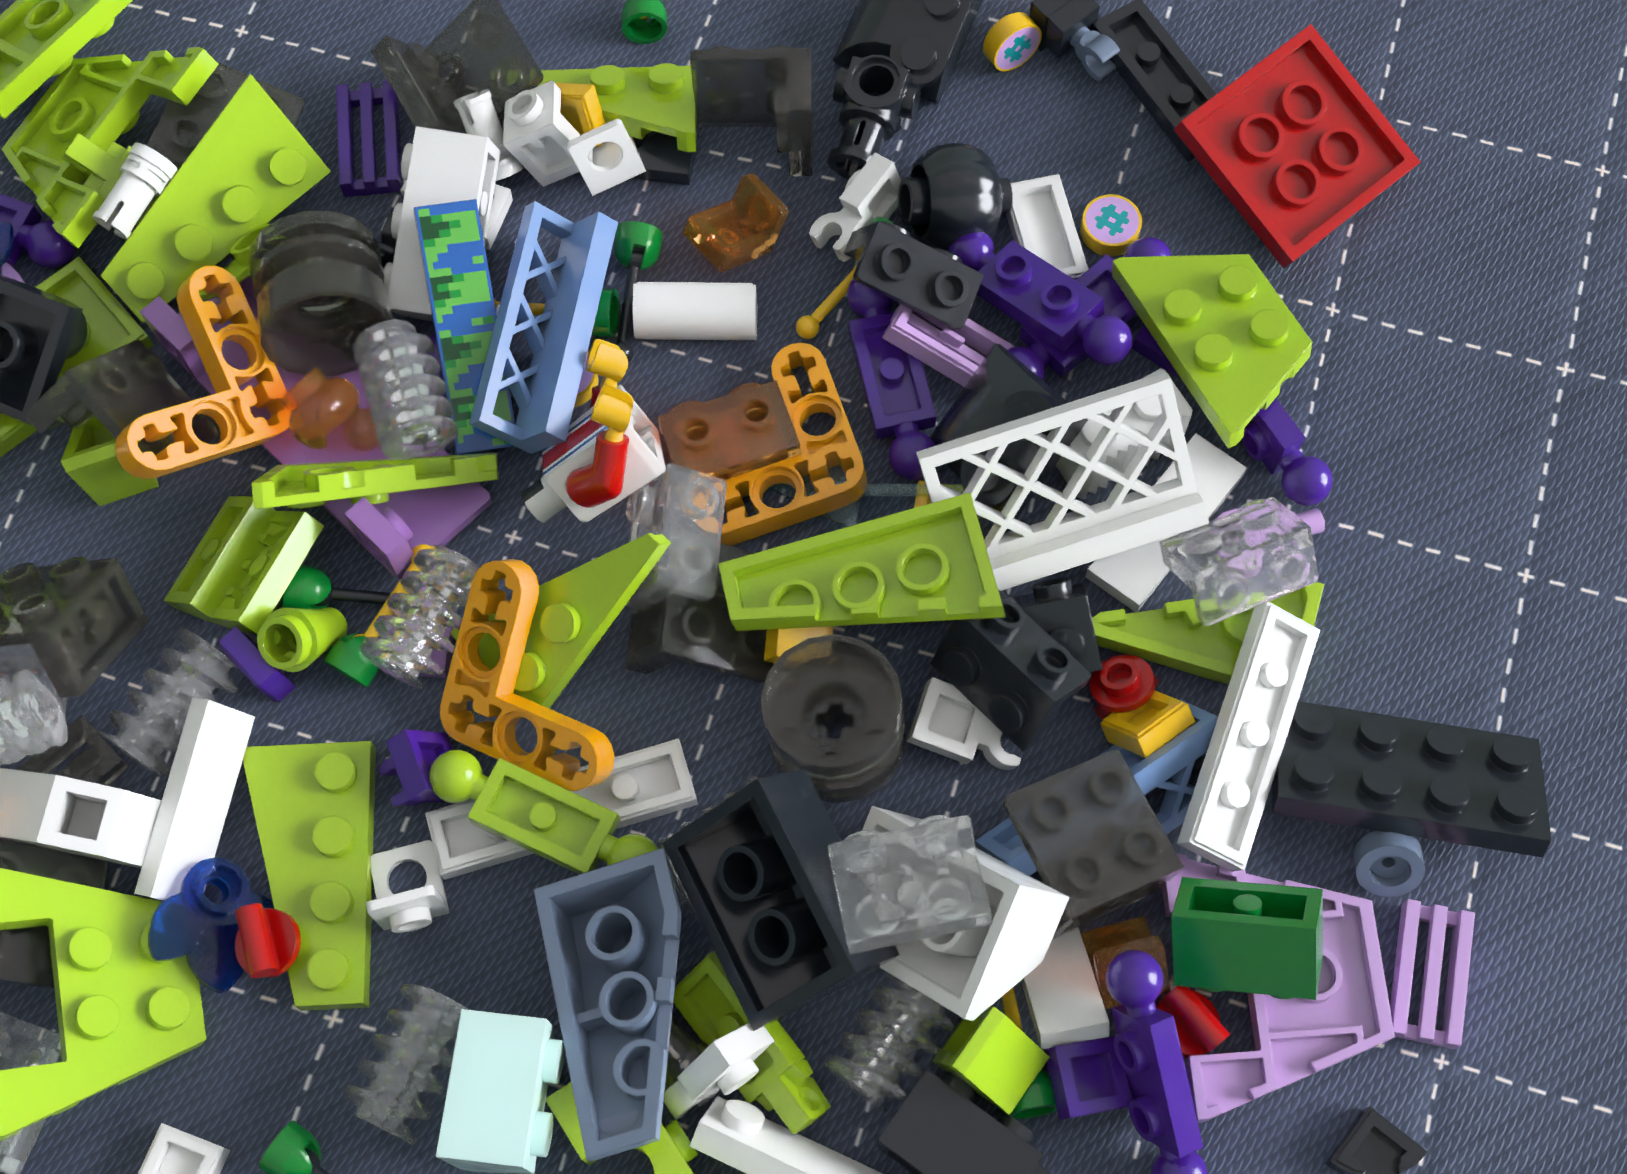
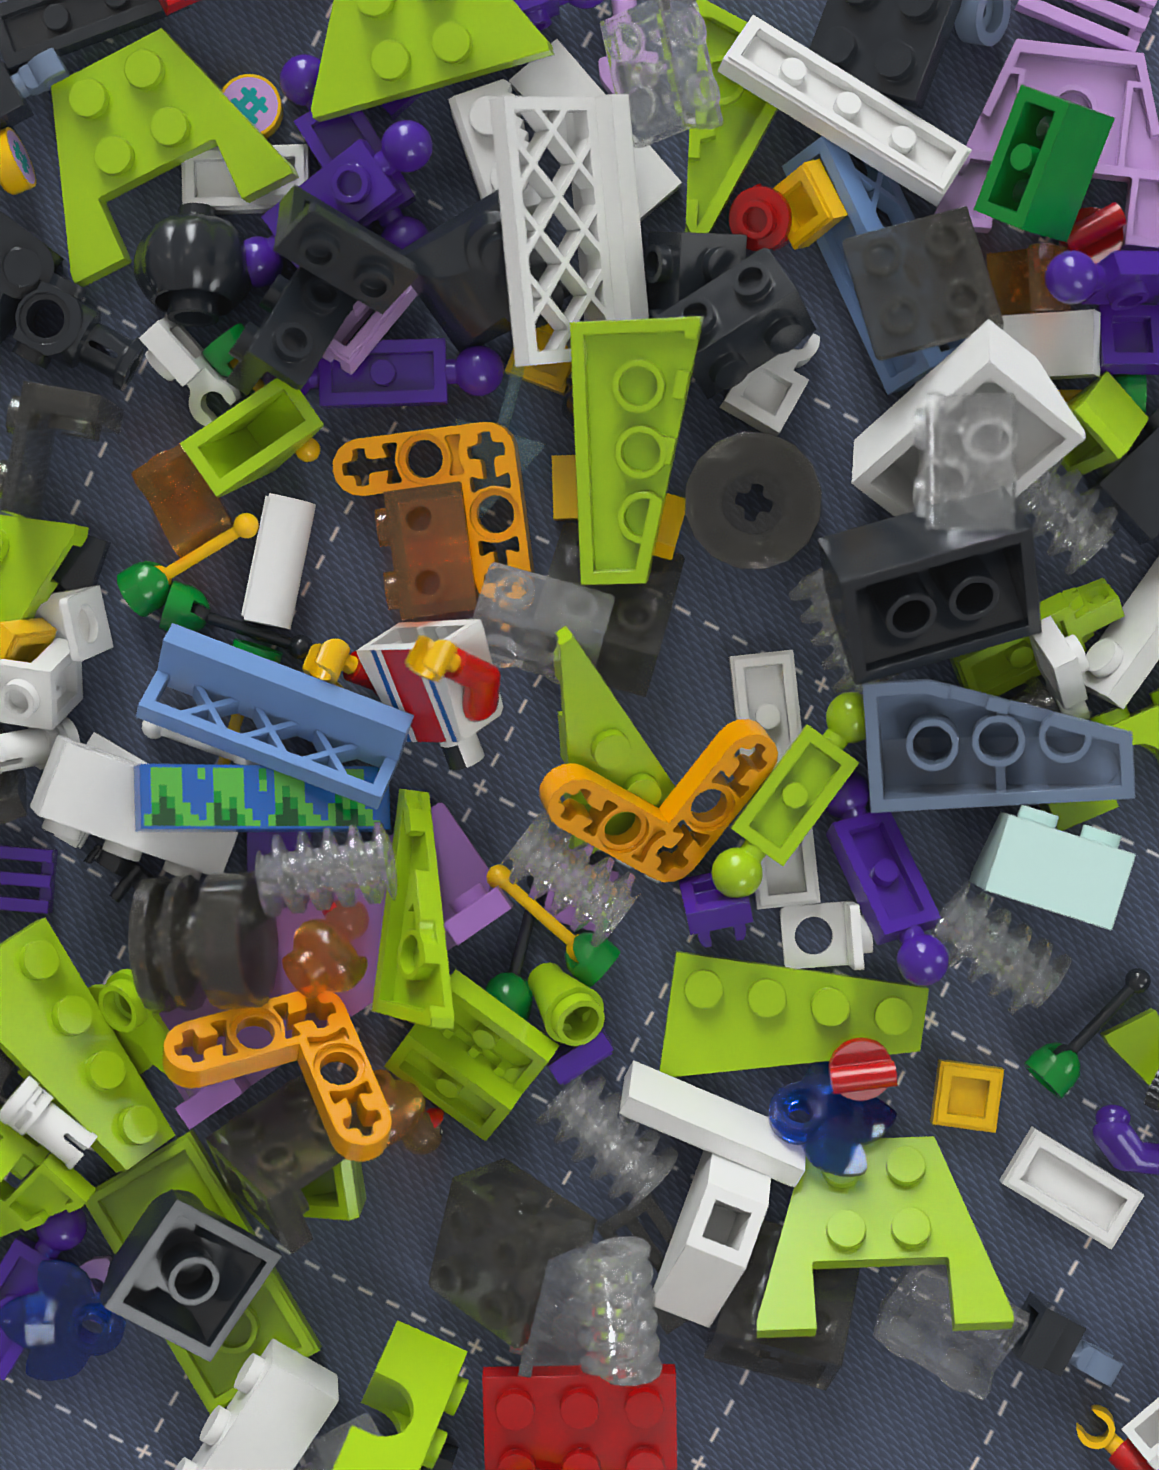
camera: 80 degrees left, 20 degrees up
(184, 504) = (411, 1123): none -> clear orange animal
(254, 1069) = (967, 1095): none -> yellow tile
(458, 932) = (886, 882): none -> dark purple plate
(656, 207) = (149, 583): none -> hinge
(801, 263) = (252, 437): none -> lime slope
(993, 288) = (341, 251): none -> black bracket
(1070, 130) = (135, 121): none -> lime wing

